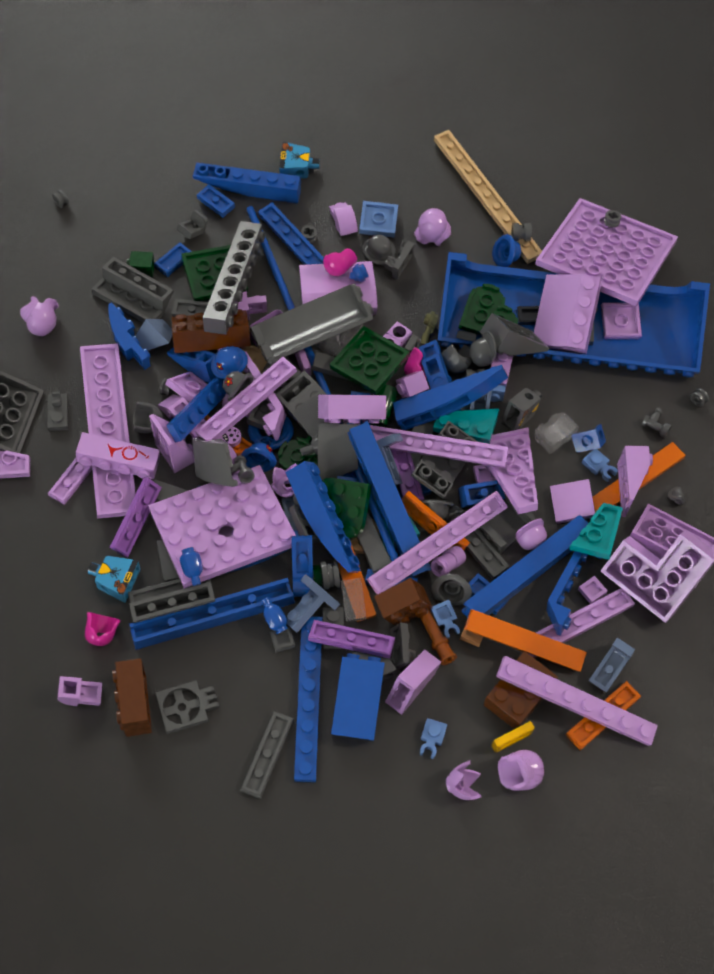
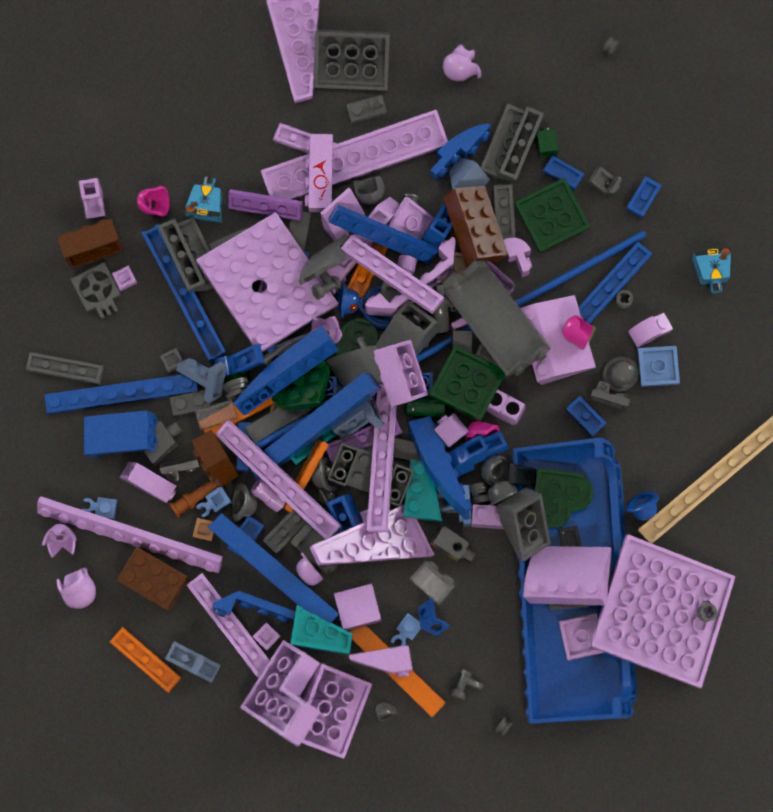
camera: 90 degrees right, 15 degrees up
(178, 674) = (124, 278): none -> lavender tile
(191, 564) = (212, 261): blue plant -> none
(228, 360) = (437, 250): blue hat -> none
(232, 437) = (363, 274): lavender tile -> none
(233, 278) = (508, 224): dark grey brick -> none
(236, 382) = (410, 260): dark grey hat -> none
(250, 182) = (673, 224): blue slope -> none
(274, 616) = (185, 347): blue plant -> none
(351, 639) = (174, 418): medium lavender tile -> none
(359, 273) = (569, 355): blue plate -> none
(413, 342) = (503, 424): dark grey tile -> none
(415, 282) = (586, 416): none -> blue plate
(430, 321) = (540, 439): olive plate -> none
(432, 227) = (656, 424): lavender hair -> none
(461, 722) = (129, 534): none -> lavender plate
(512, 737) = (109, 578): yellow tile -> none
(521, 231) = (666, 516): dark grey wheel -> none
(525, 640) = (197, 576): orange tile -> none
(576, 701) = (145, 629): lavender plate -> none

